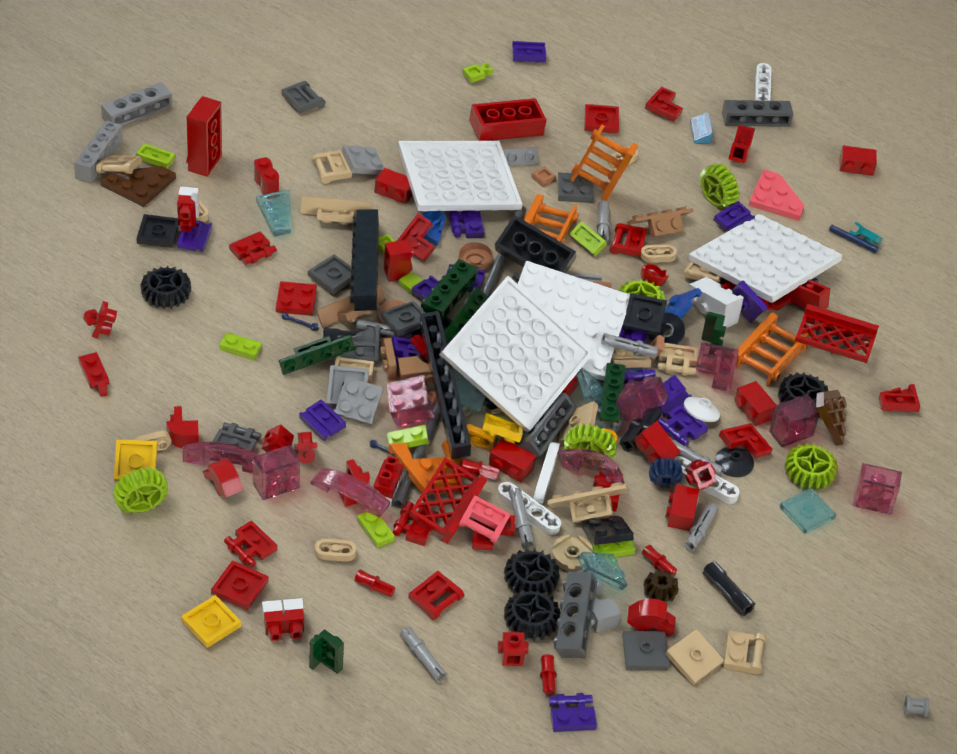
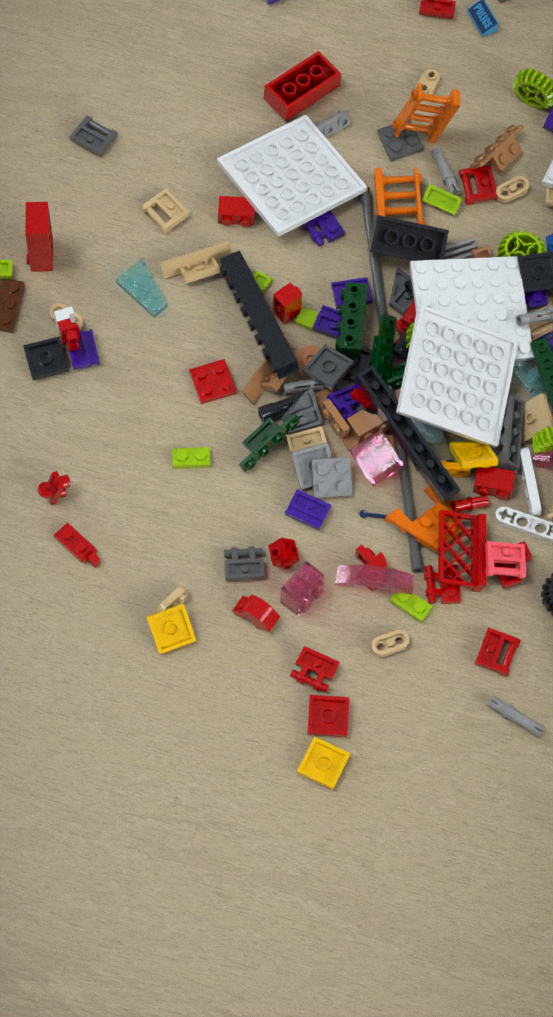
camera: 20 degrees left, 20 degrees up
(140, 490) = (195, 660): lime gear -> none
(165, 284) = (101, 427): black gear -> none
(181, 431) = (192, 579): red brick -> none
(215, 451) = (243, 583): clear pink slope -> none
(252, 248) = (139, 336): red plate -> none
(266, 176) = (114, 252): red brick -> none
(283, 621) = (383, 732): red hips -> none
(305, 446) = (310, 546): red hips -> none
(314, 326) = (245, 406): dark blue hinge -> none
(326, 650) = (441, 751): dark green bracket -> none
(331, 274) = (232, 340): dark grey plate -> none
(362, 160) = (191, 192): light grey plate -> none
(374, 583) = (440, 662): red axle -> none
(389, 478) = (400, 552): red hips -> none
(412, 436) = (393, 498): lime plate -> none
(414, 235) = (286, 270): red plate -> none
(438, 221) = (292, 246): blue wing -> none
(476, 73) = (241, 36): lime plate -> none
(476, 254) = (350, 263): nougat piece -> none
(523, 525) = (536, 547): light grey pin -> none
(543, 176) = (365, 138): nougat tile -> none
(601, 115) = (386, 45): red plate -> none
(654, 274) = (521, 218): red hair -> none
(742, 144) = (530, 26): red brick -> none

